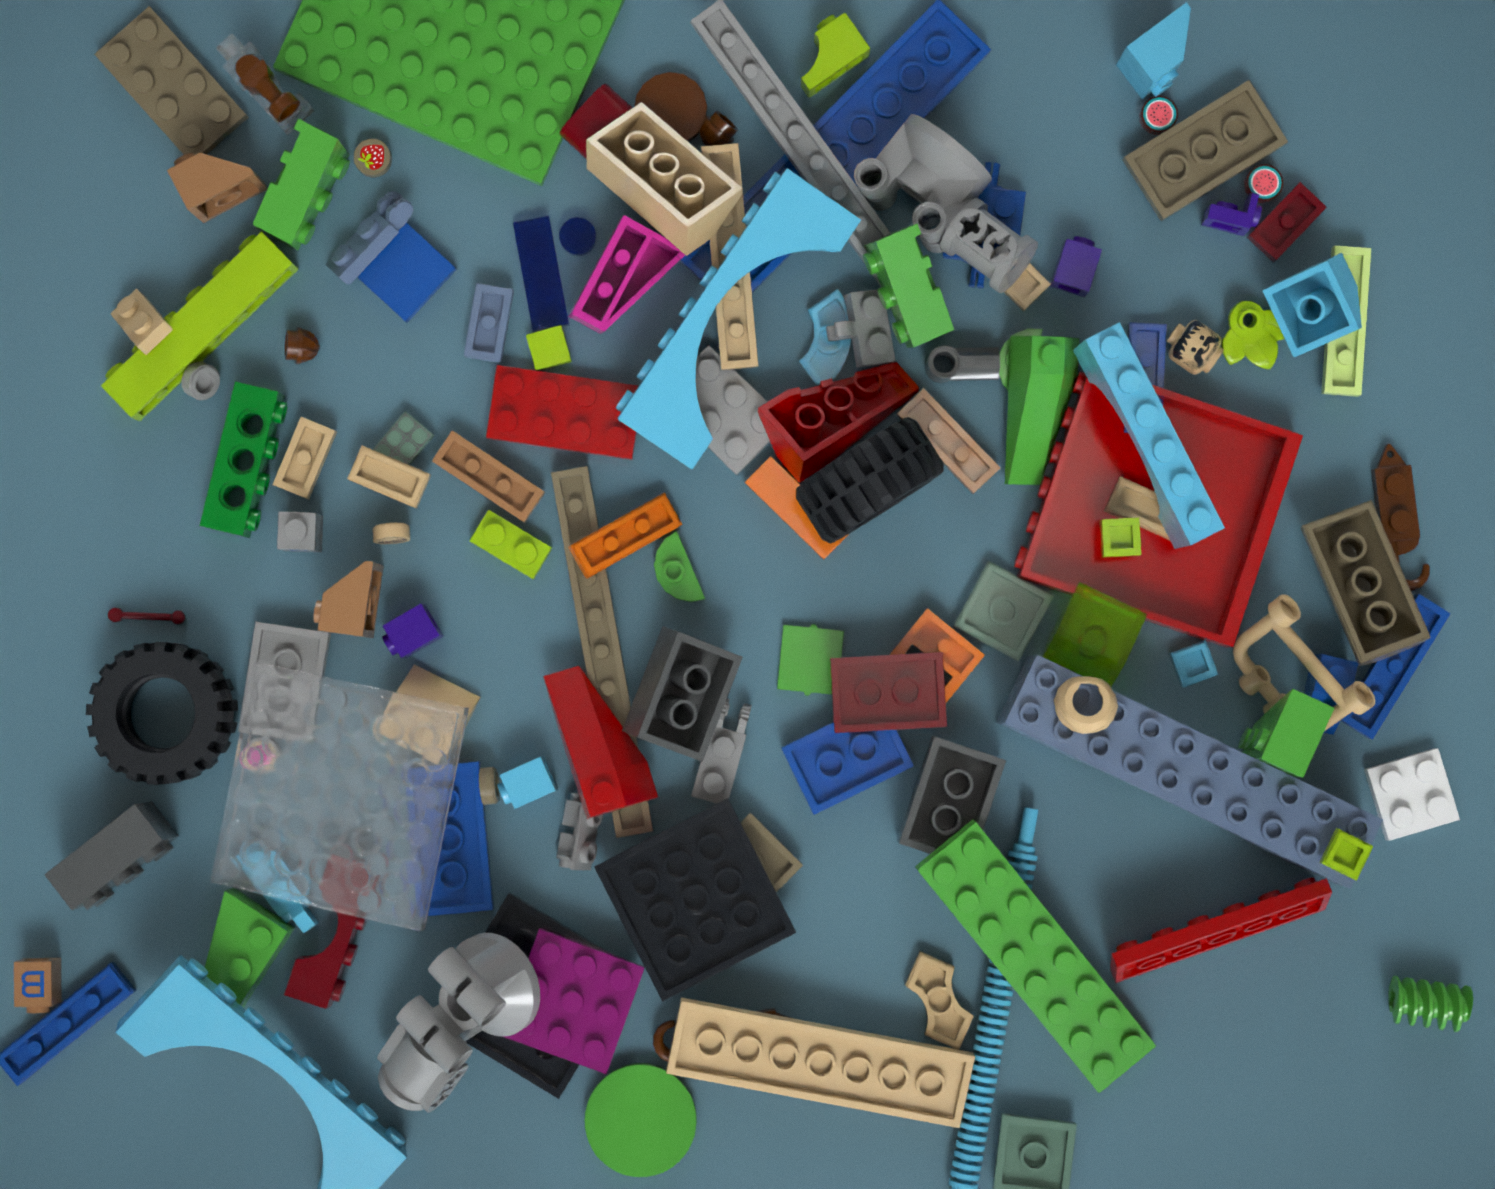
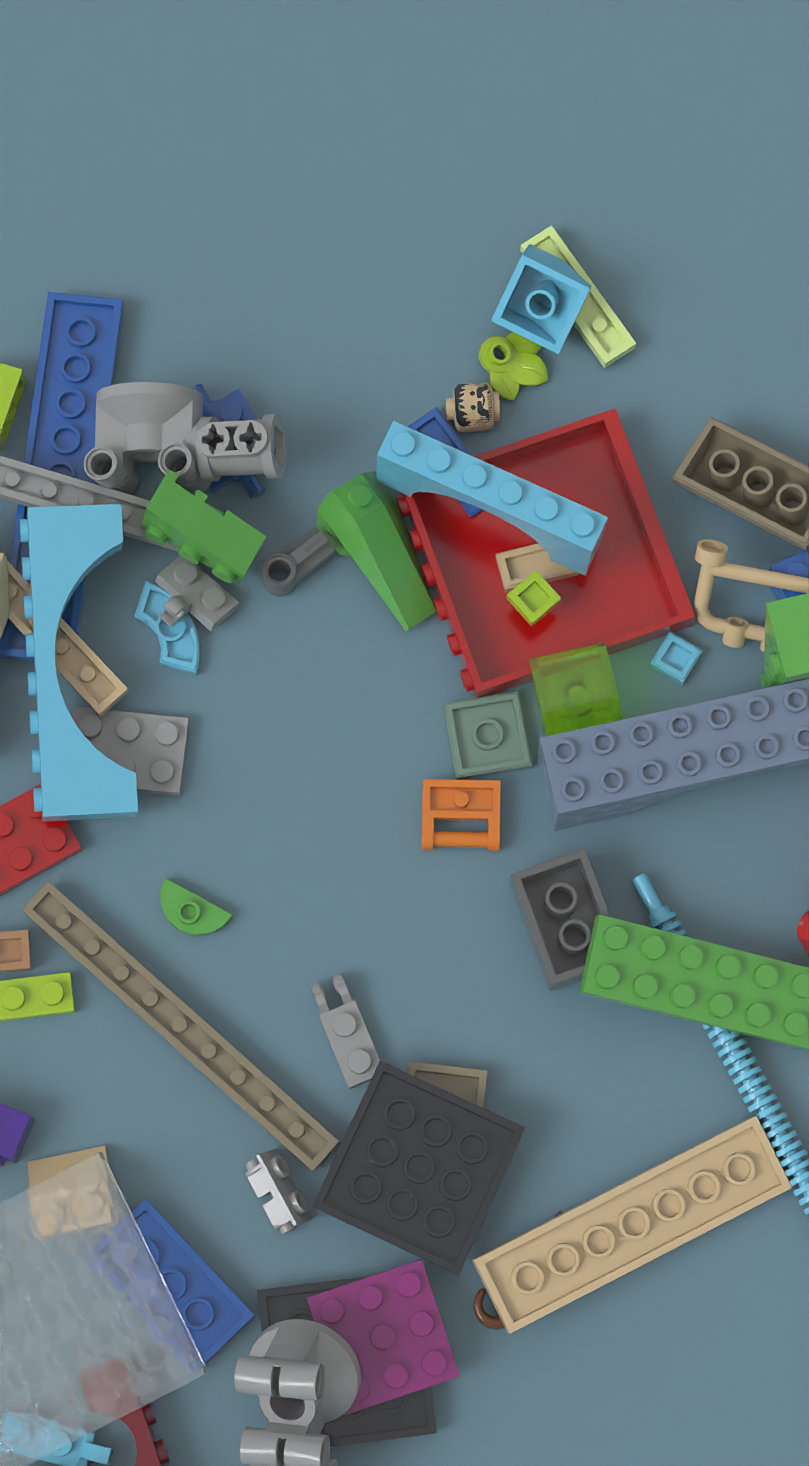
camera: 40 degrees left, 10 degrees down
(488, 785) = (170, 1212): dark tan tile -> none
(526, 783) = (201, 1184): medium azure brick -> none
(601, 756) = (241, 1107): red wedge -> none
(625, 535) = (124, 913): orange tile -> none
(640, 1120) = (521, 1397): bright green tile -> none
(682, 693) = (273, 1004): dark grey brick -> none
(778, 491) = (251, 782): orange tile -> none
(807, 657) = (360, 898): bright green piece -> none
(823, 421) = (218, 694): red wedge -> none
(844, 764) = (453, 953): blue plate -> none
(869, 479) = (291, 706): black tyre -> none
(888, 692) = (444, 870): dark red plate -> none
(933, 984) = (674, 1086): tan tile -> none
(952, 443) = (333, 633): medium nougat plate -> none
(1027, 288) = (300, 464): tan tile -> none
(1076, 266) = (326, 416): dark purple brick -> none
(1079, 723) = (611, 764): tan piece -> none
(1155, 56) = (258, 204): medium azure slope -> none
(1158, 115) = (299, 251): tile -> none
(1205, 150) = (358, 250): dark tan plate -> none
(1227, 218) = (418, 287): dark purple bracket -> none
(1265, 181) = (425, 241): tile -> none
(1286, 222) = (468, 256): dark red plate -> none
(1397, 507) = (736, 408): reddish brown plate -> none

